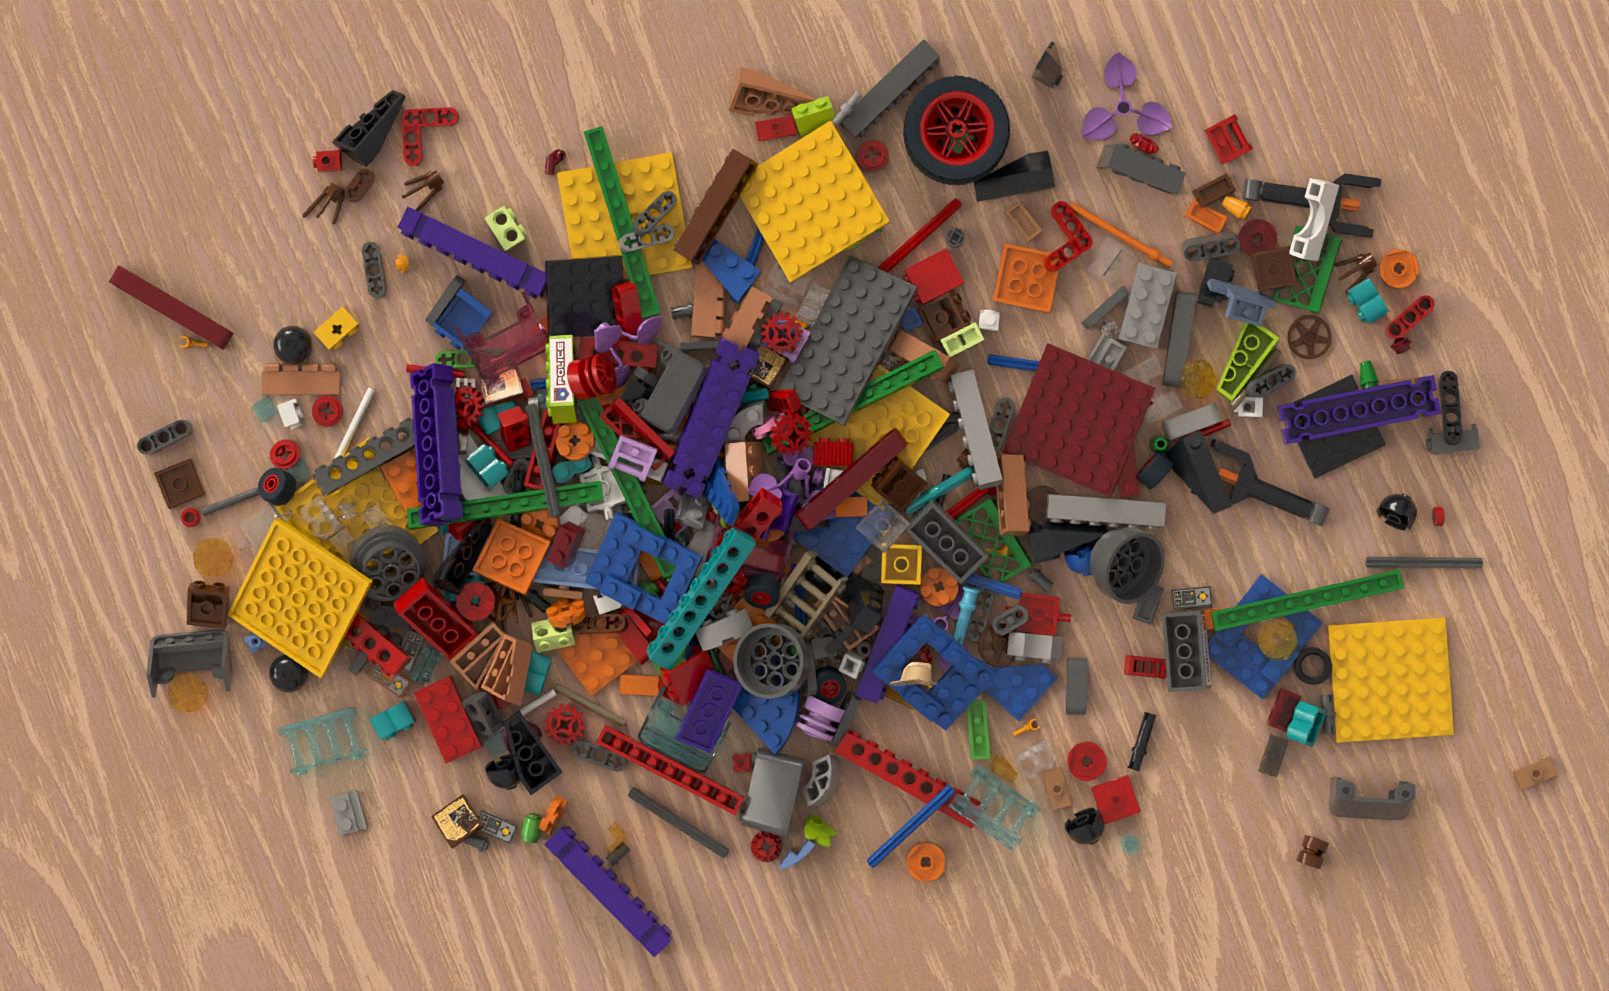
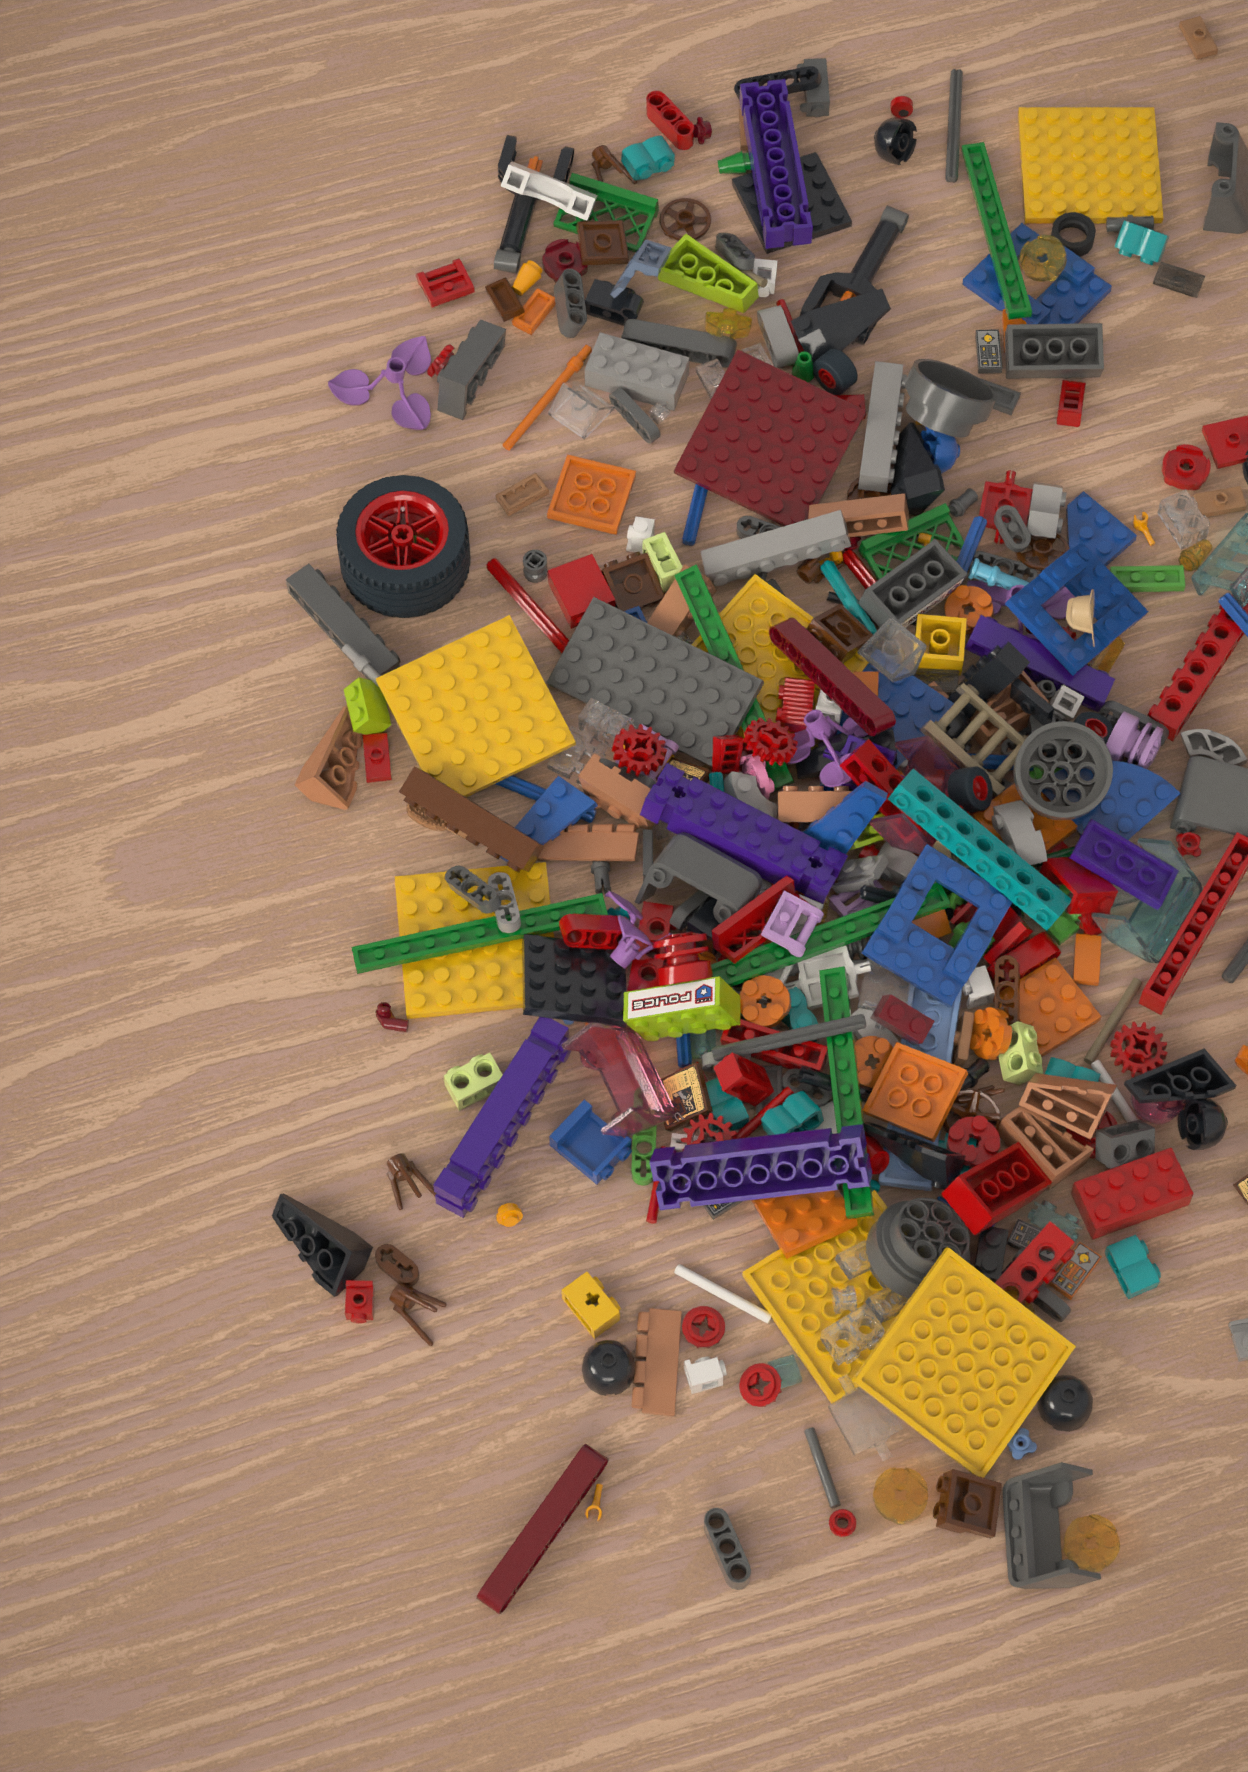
camera: 90 degrees left, 25 degrees down
(179, 483) = (793, 1536): reddish brown tile -> none
(264, 409) = (695, 1412): clear light blue tile -> none
(277, 486) = (811, 1386): black wheel -> none
(309, 727) = (1140, 1378): clear light blue fence -> none
(329, 485) = (797, 1319): dark grey brick -> none
(382, 283) = (534, 1260): dark grey beam -> none
(416, 128) = (327, 1187): red beam -> none
(445, 300) = (564, 1163): dark grey beam -> none
(495, 744) = (1167, 1137): clear light blue tile -> none
(601, 763) = (1189, 1007): dark grey beam -> none
(864, 151) = (414, 645): red gear -> none
(1022, 176) = (467, 481): black wedge -> none
(1049, 67) = (333, 447): black wedge -> none
(1073, 242) = (546, 438): red beam -> none
(1076, 686) = (1094, 471): dark grey beam -> none
(1107, 352) = (686, 415): light grey plate -> none
(1139, 749) = (1162, 409): black pin -> none
(1283, 709) = (1123, 269): dark red hinge -> none
(1405, 259) = (612, 139): orange plate -> none

